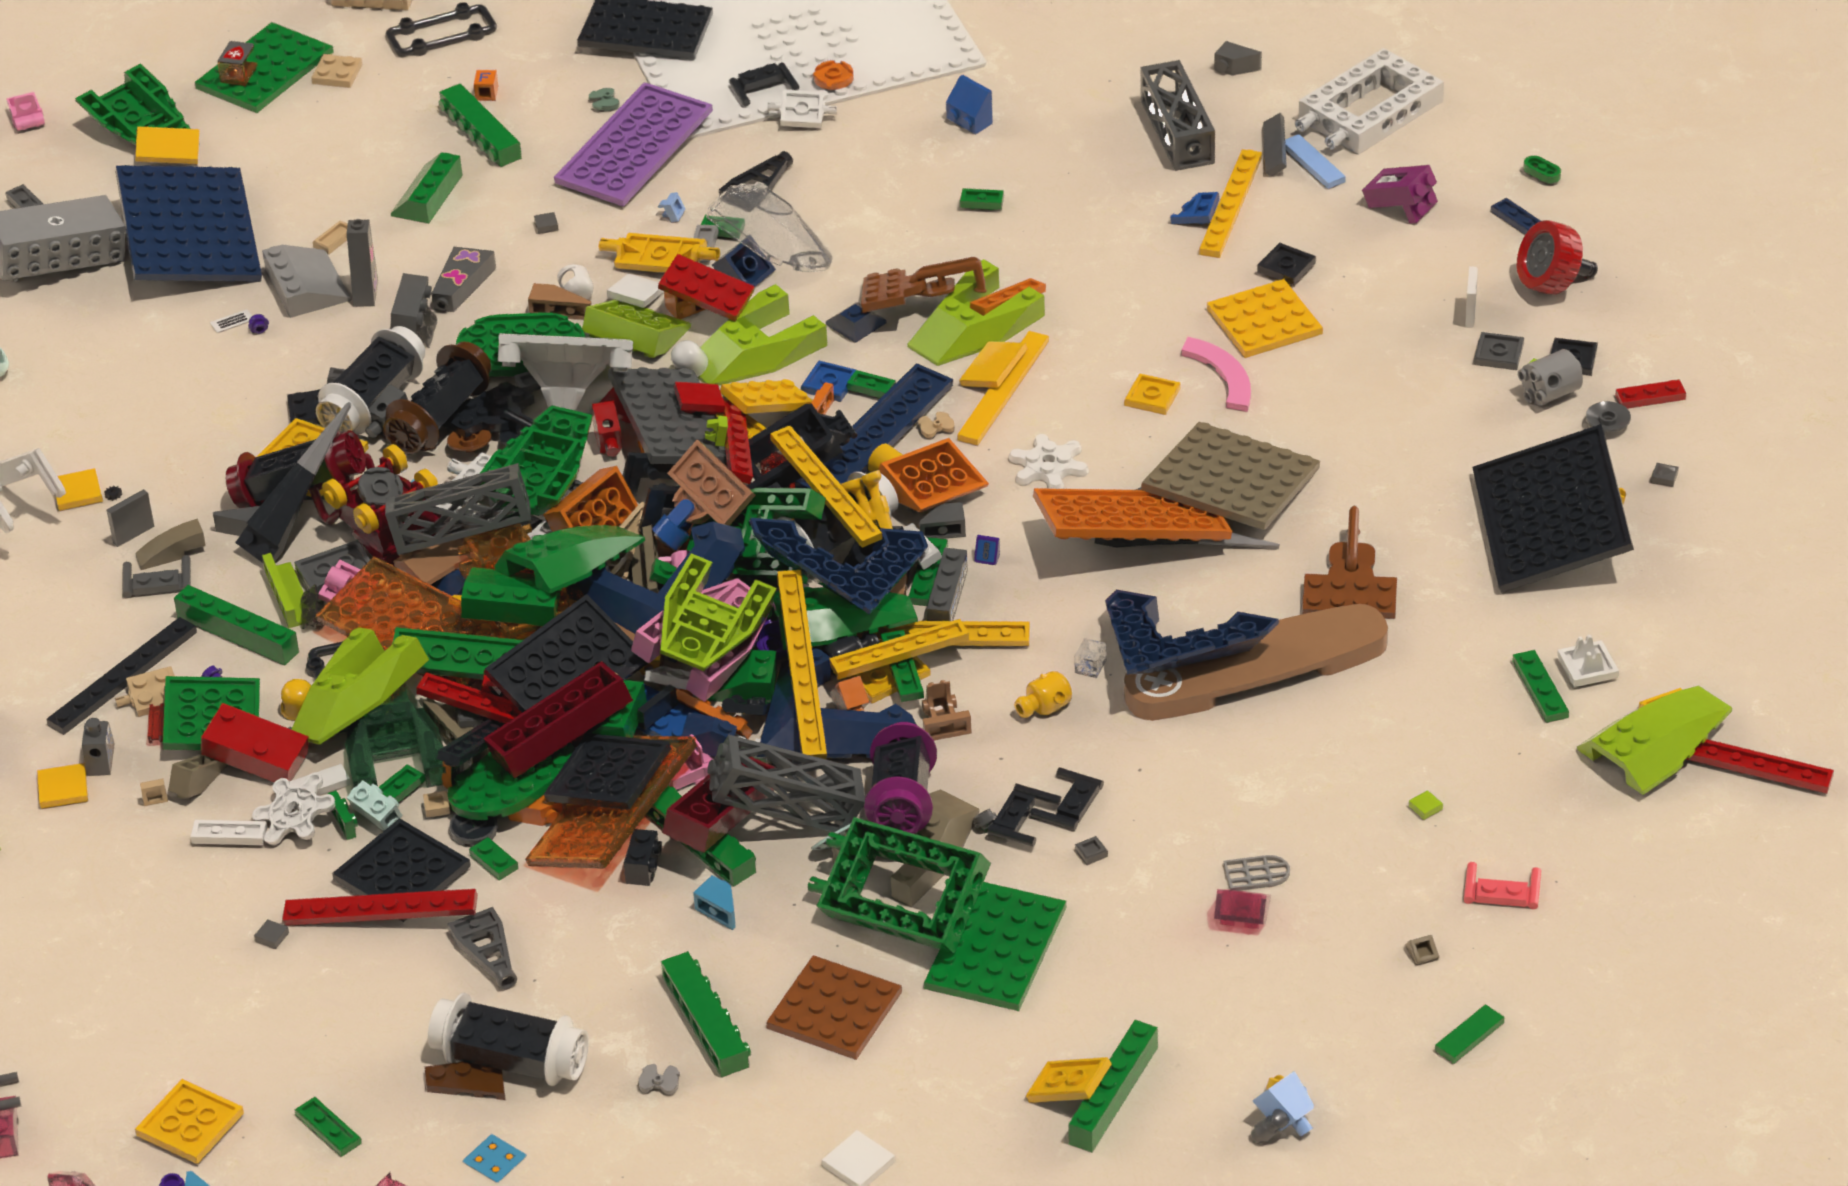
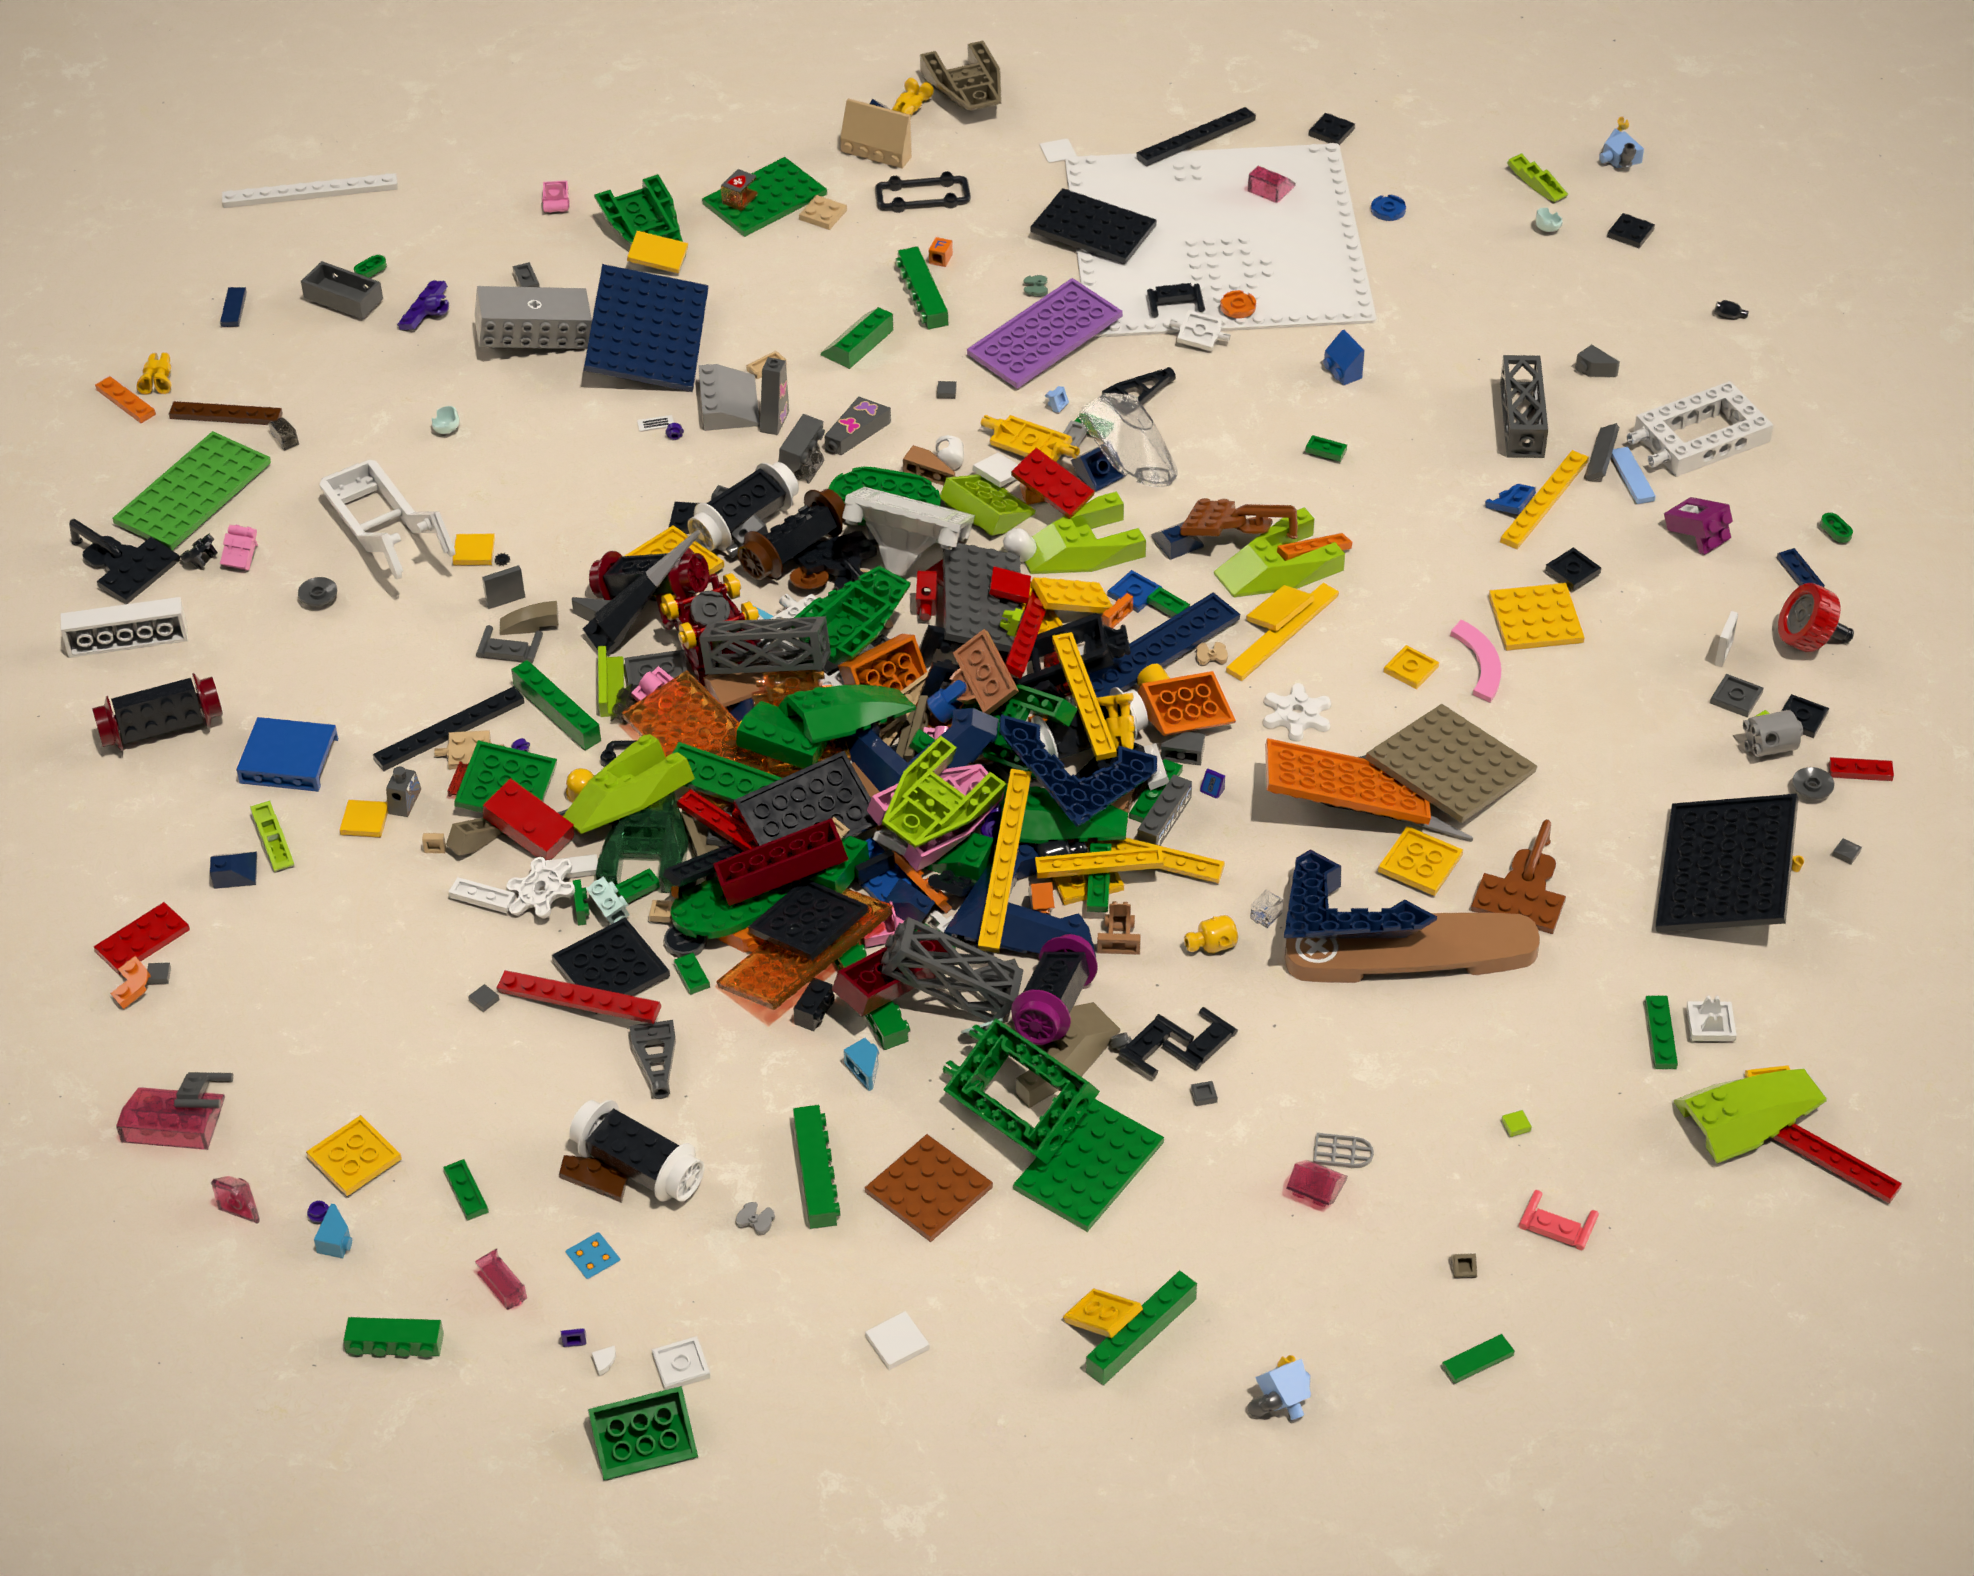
camera: 15 degrees right, 5 degrees up
(1233, 577) = (1420, 860): none -> yellow plate

